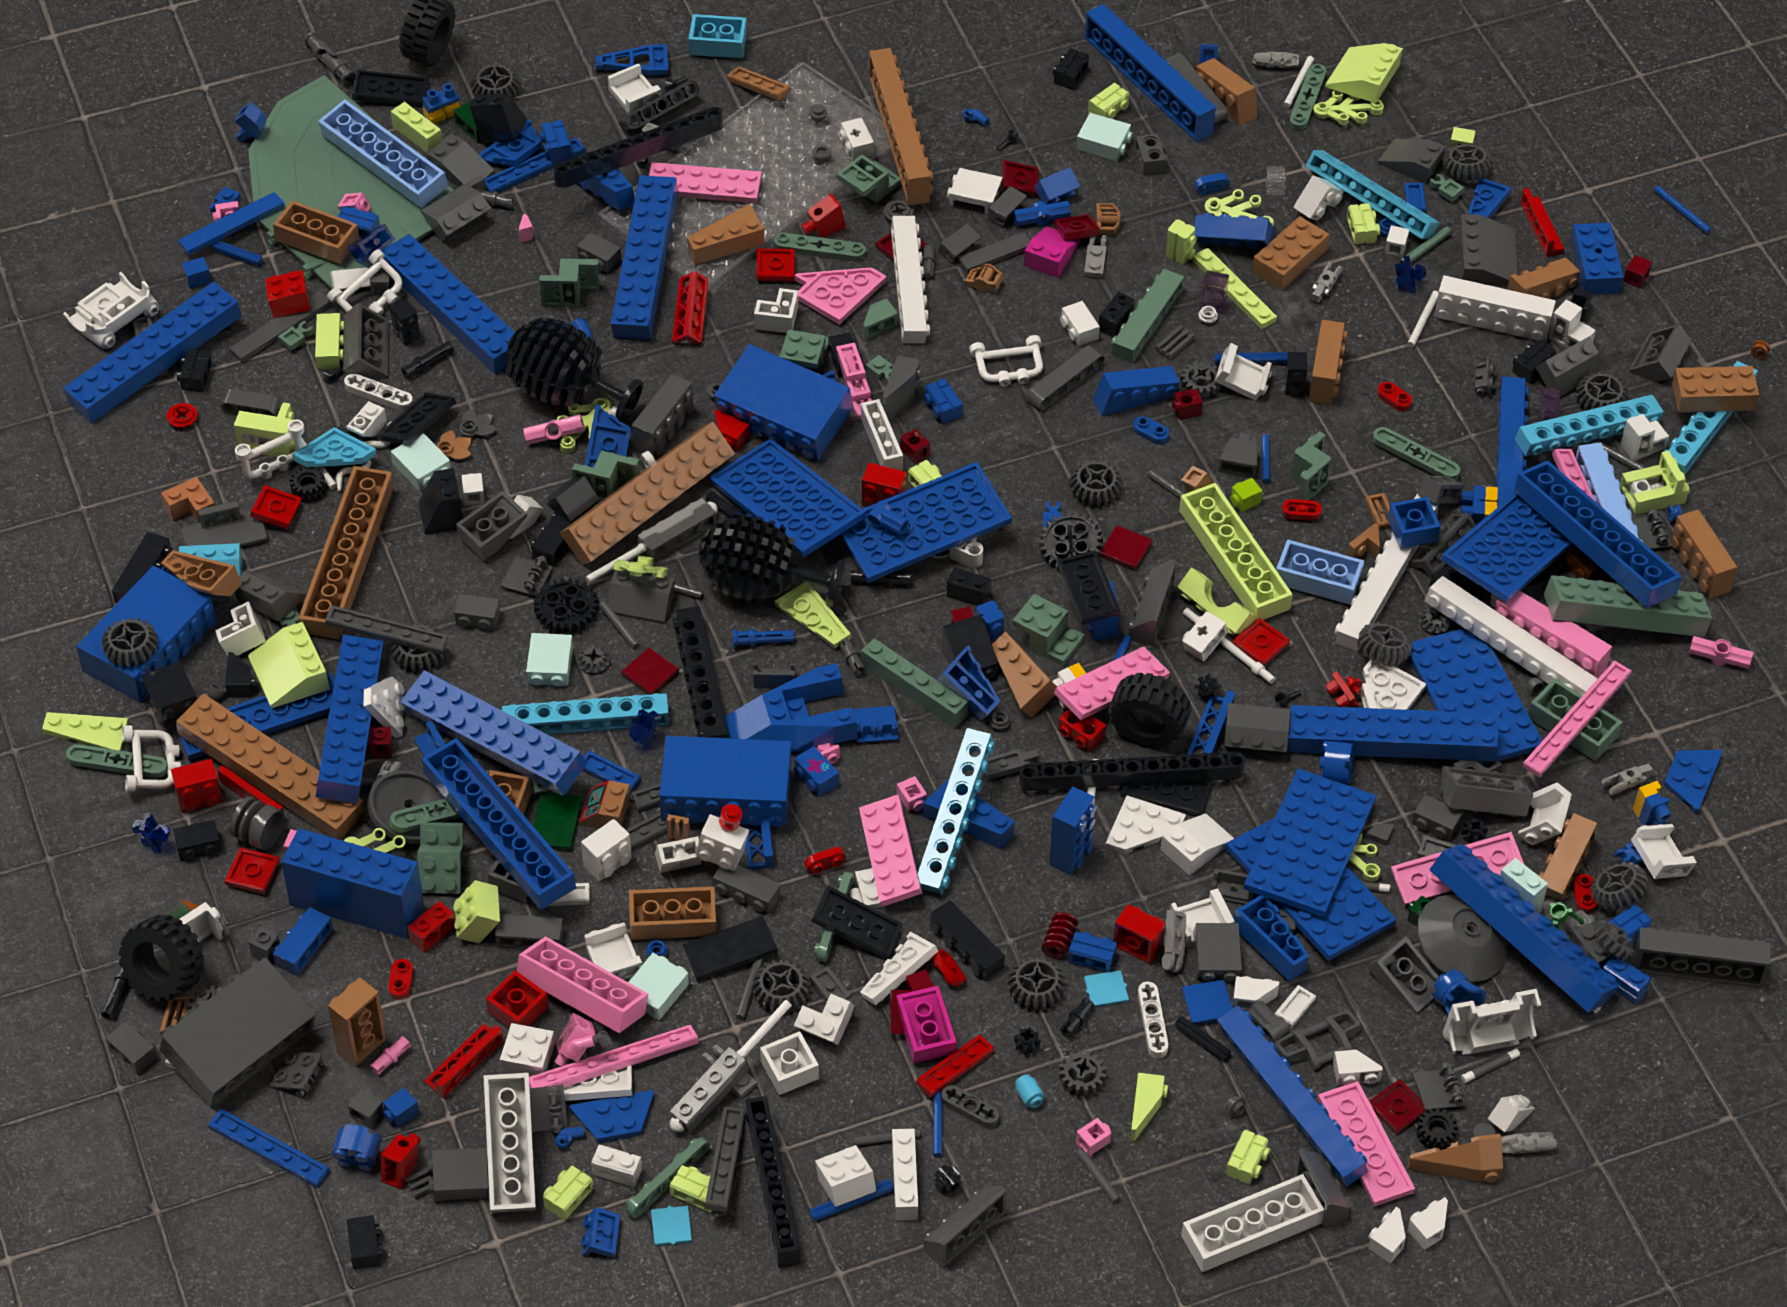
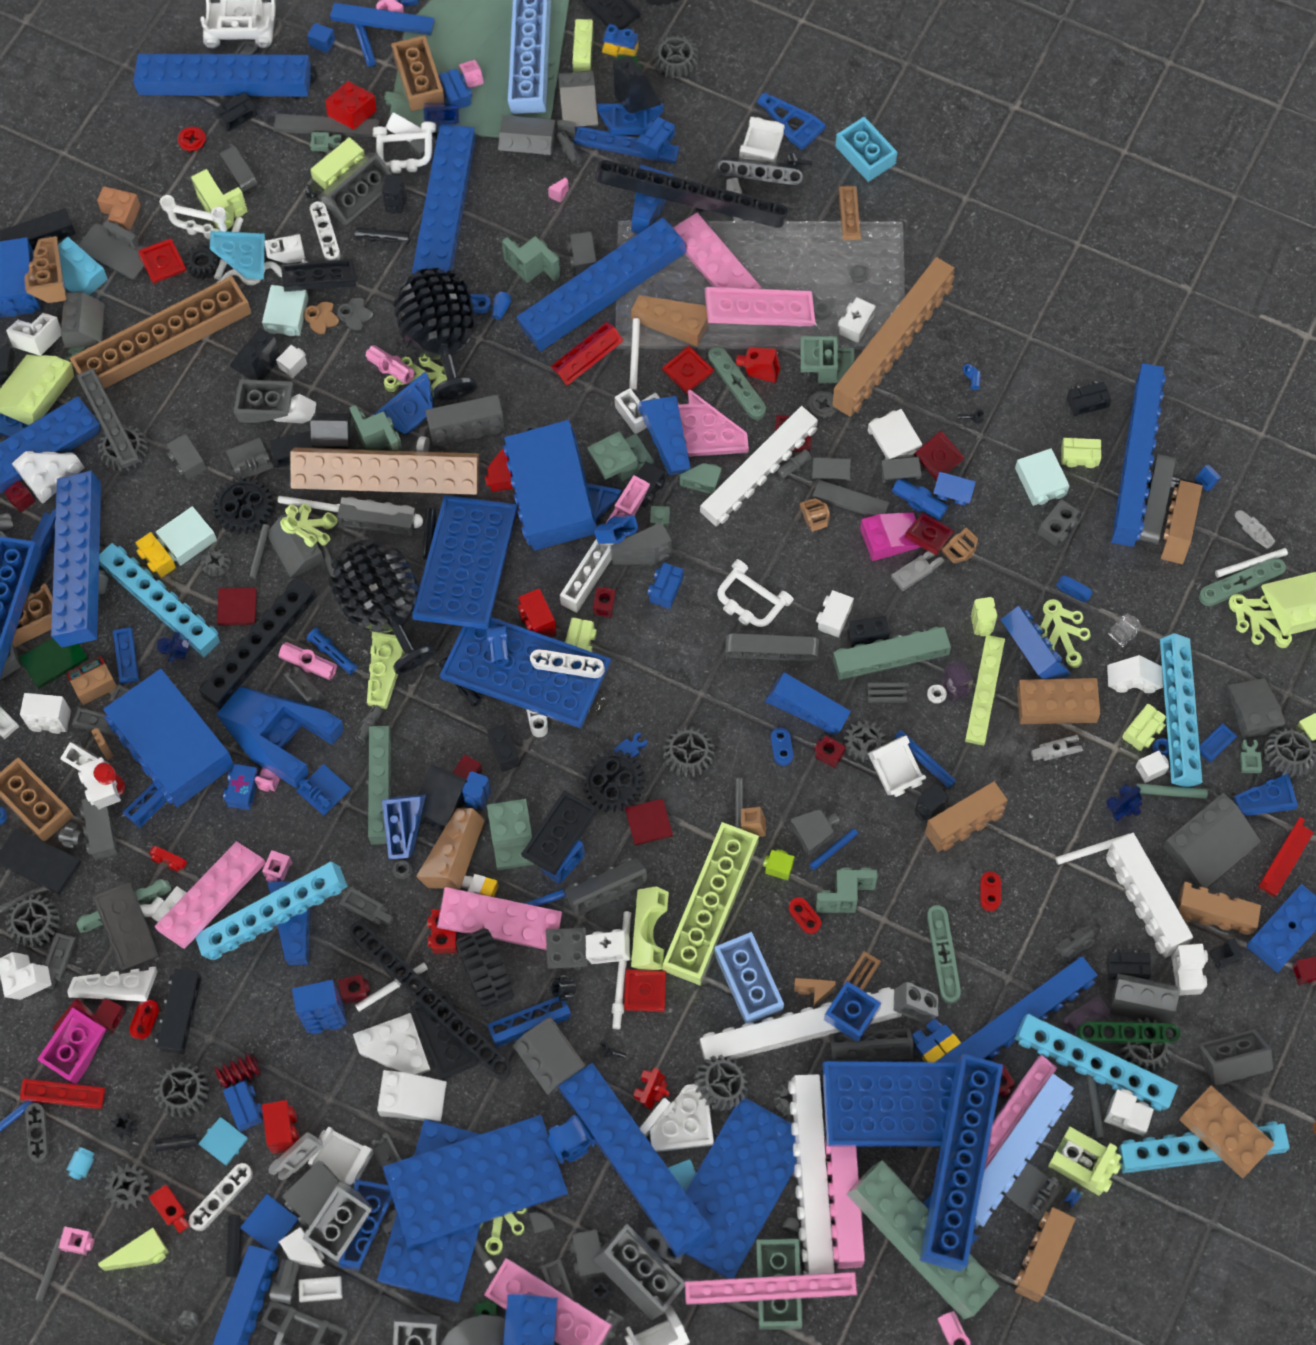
camera: 50 degrees right, 15 degrees up
(543, 688) = (156, 556): none -> yellow brick
(726, 283) = (634, 354): none -> white bar
(733, 910) = (70, 835): none -> dark grey gear
(753, 654) = (297, 657): none -> bright pink piece
(781, 179) = (759, 306): none -> bright pink plate
(824, 303) = (666, 429): none -> blue wedge
(872, 385) = (616, 529): none -> blue brick
(955, 491) = (566, 667): none -> white beam
(1130, 1052) = (164, 1200): none -> red torso
(1179, 661) = (566, 948): none -> dark grey hinge
(1261, 938) = (338, 1221): none -> dark grey slope
(1589, 386) = (1137, 1029): none -> dark green beam

